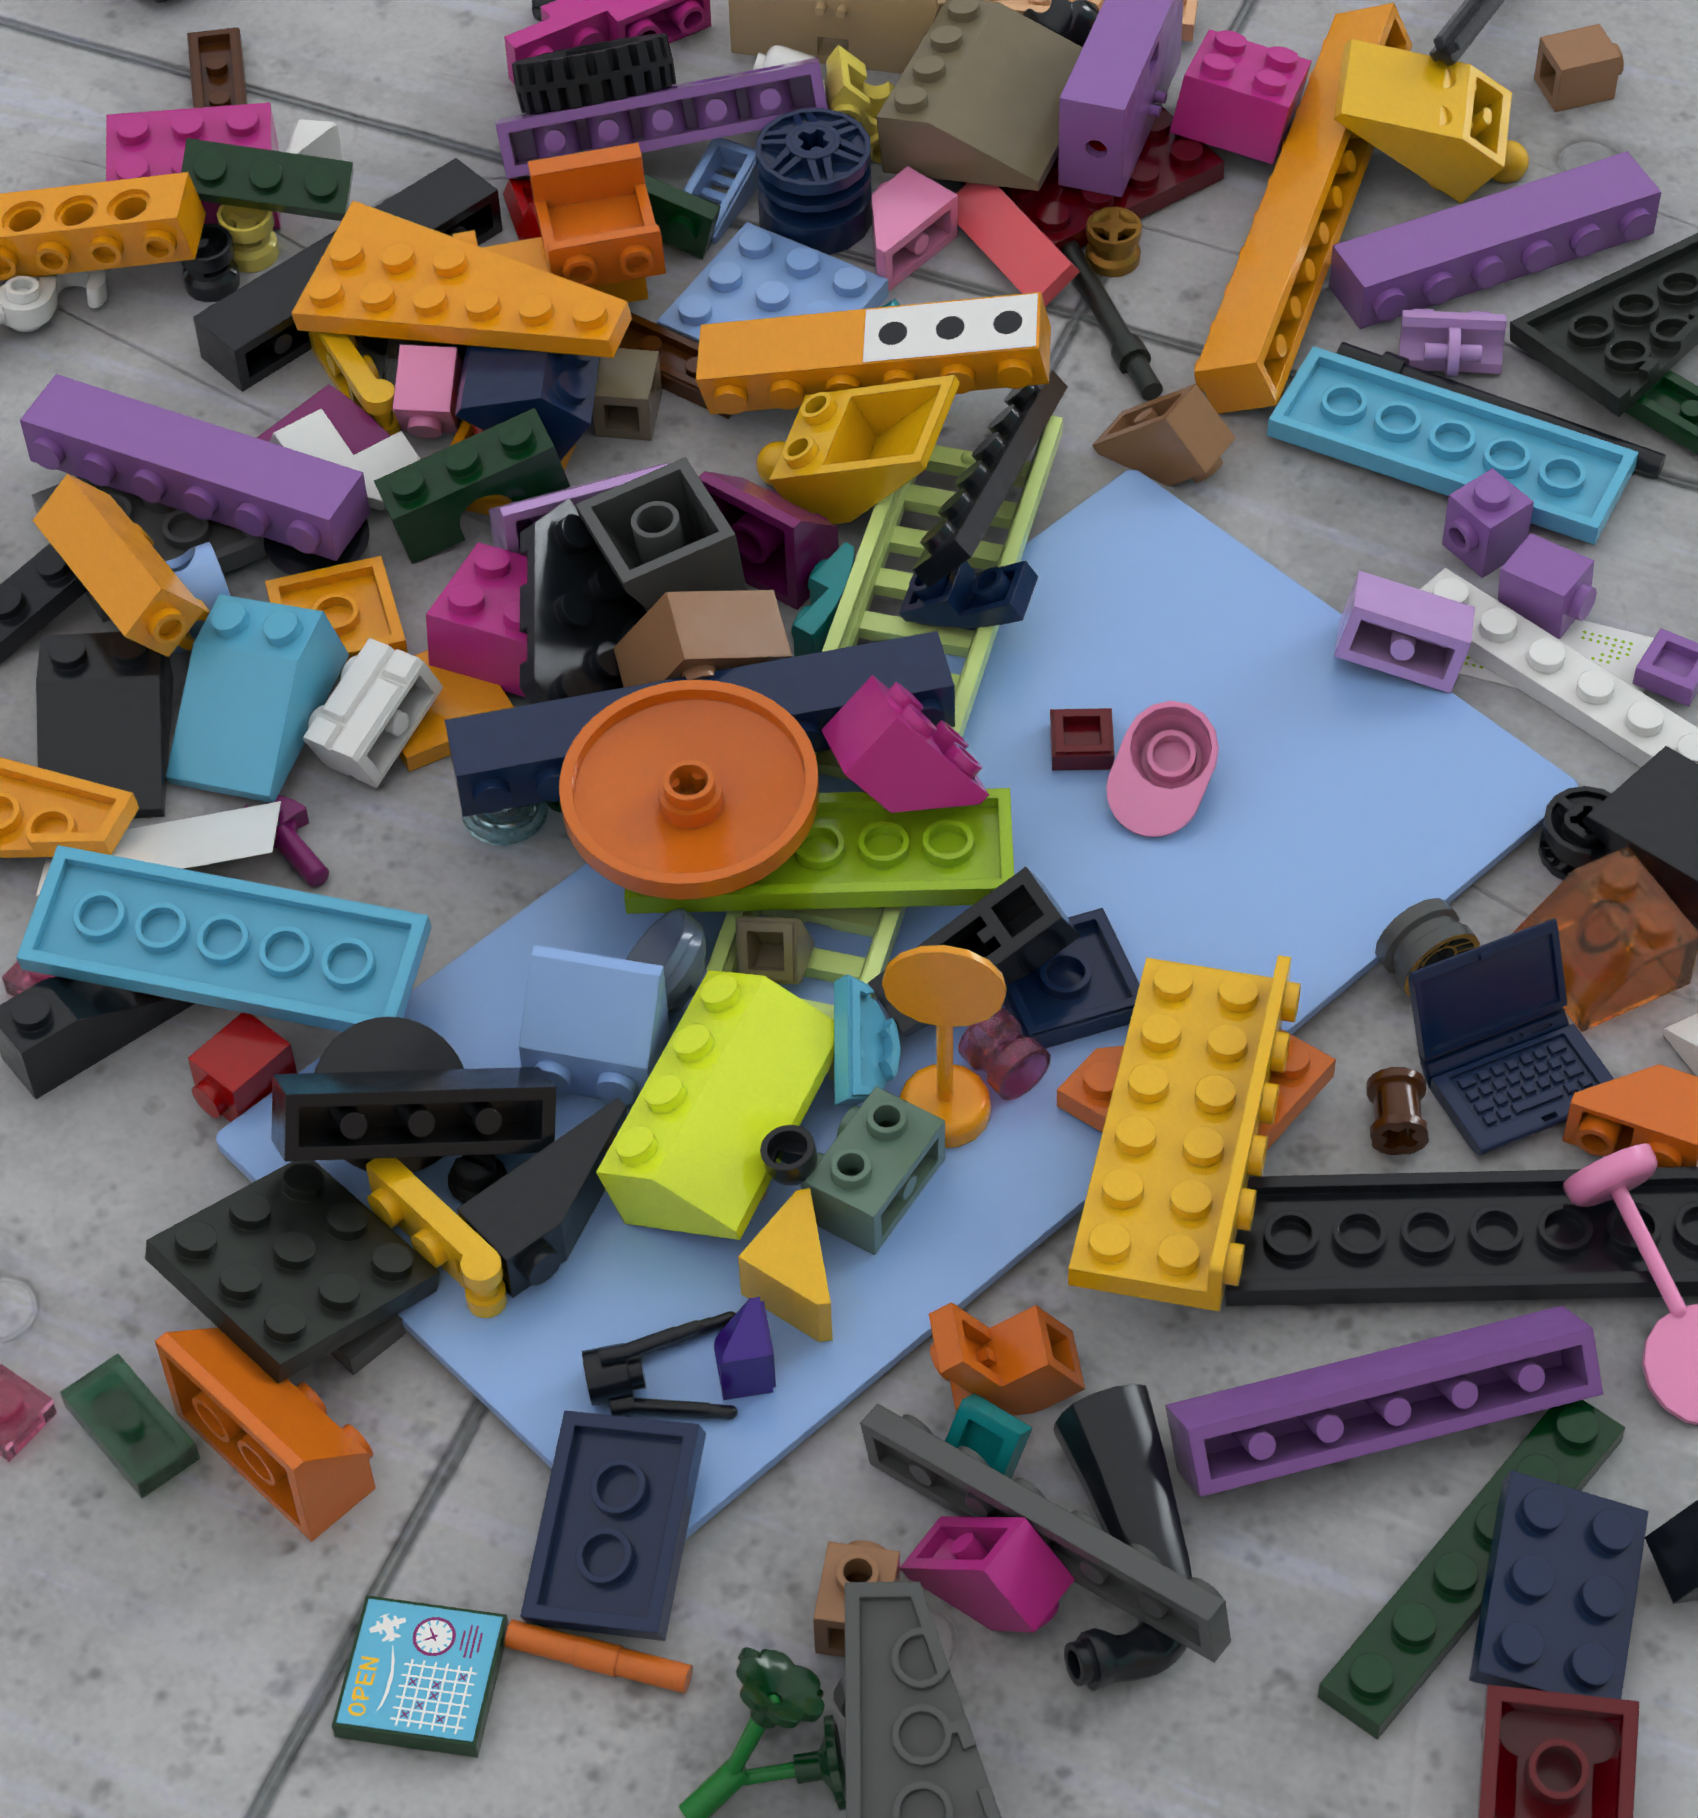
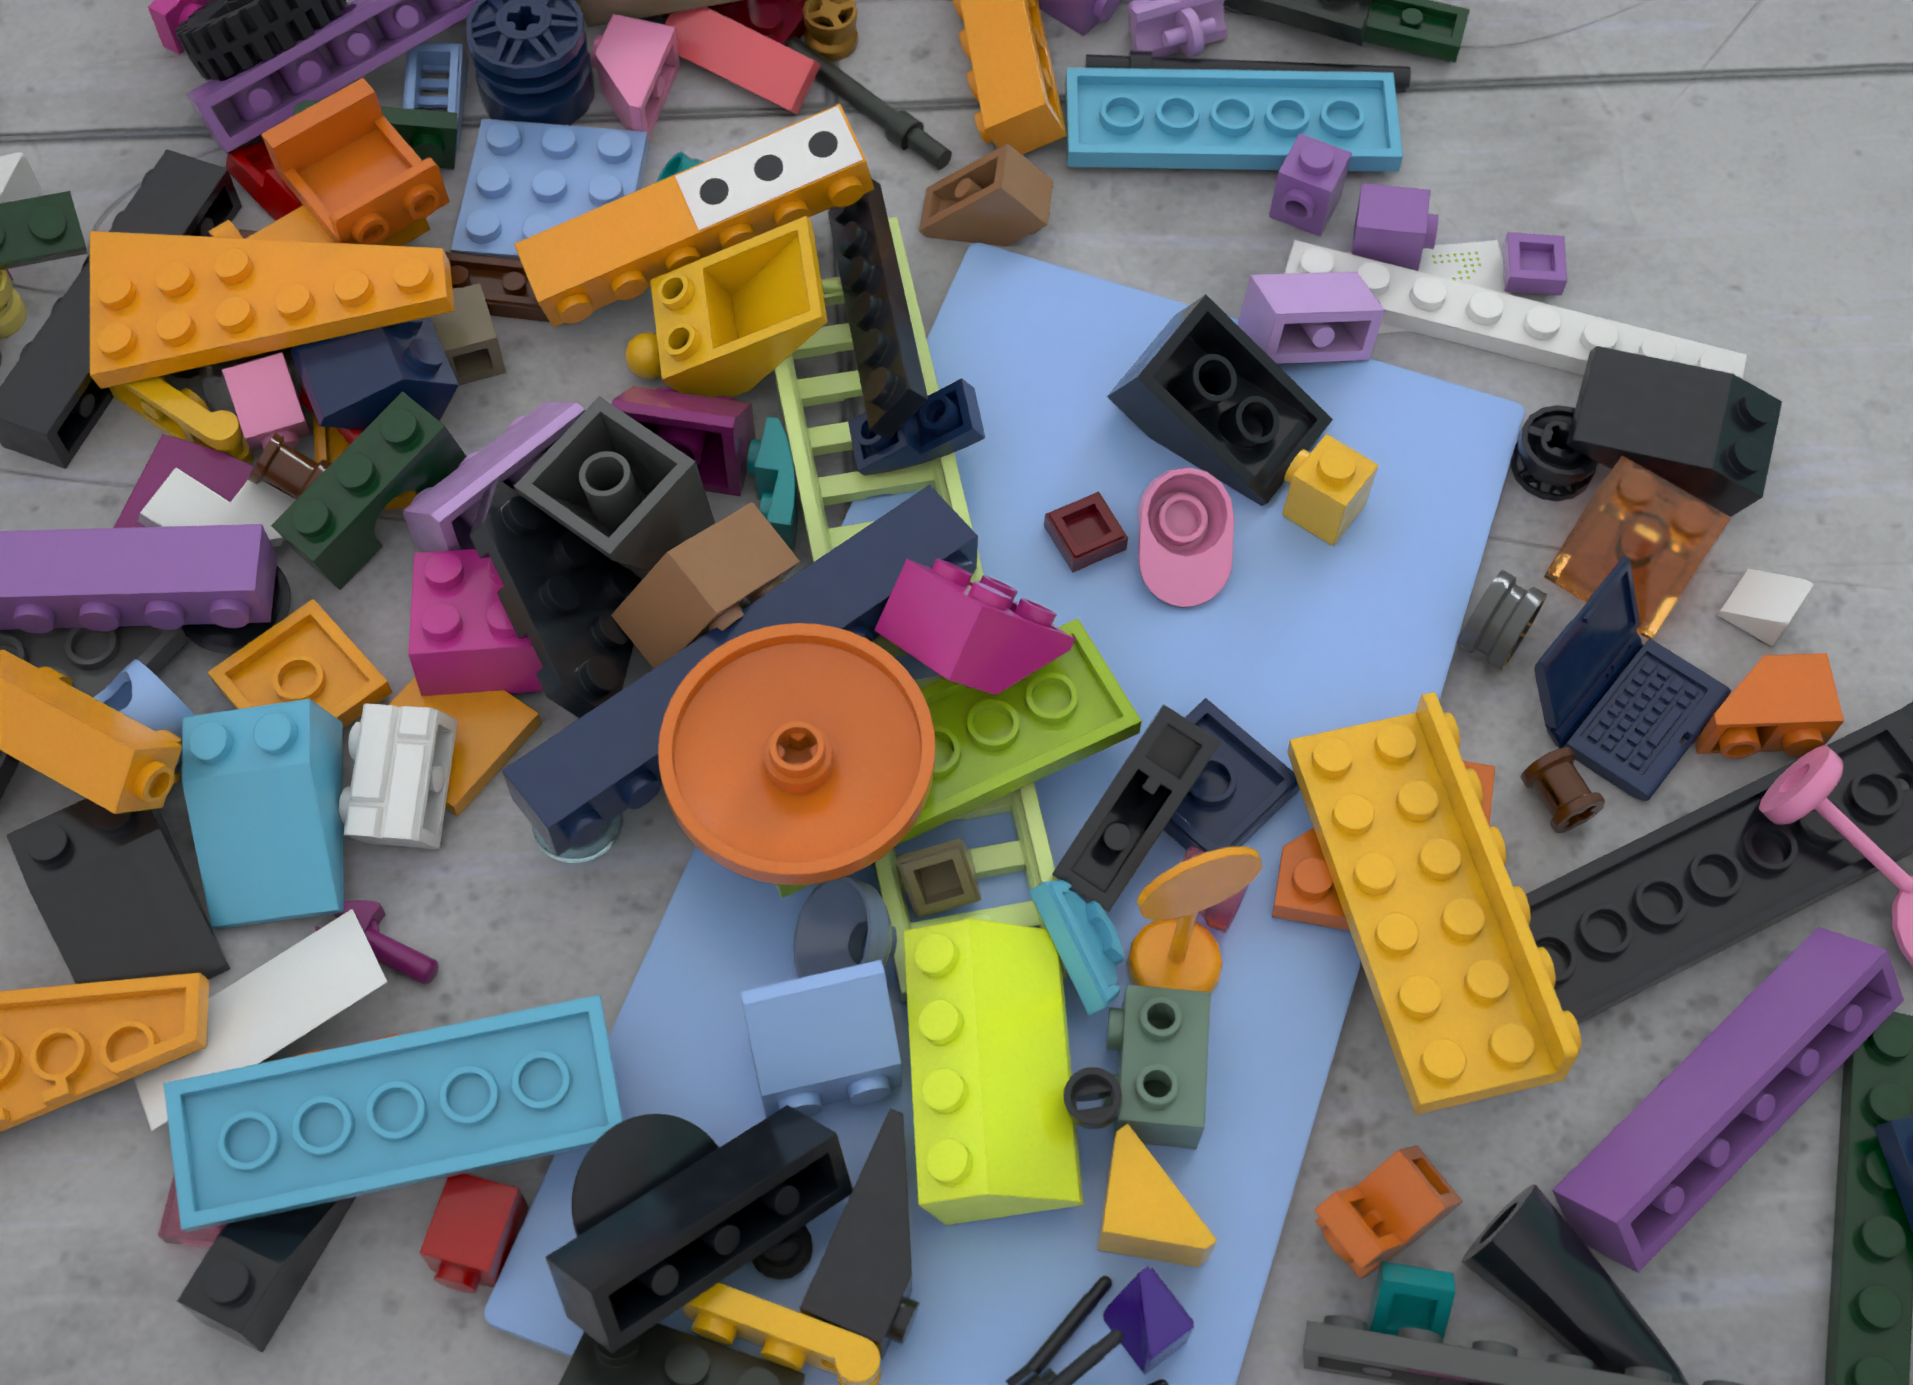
camera: 30 degrees left, 10 degrees up
(408, 437) = (286, 468): none -> reddish brown bush
(1270, 672) = (1220, 402): none -> black slope
(1324, 778) = (1328, 488): none -> yellow brick

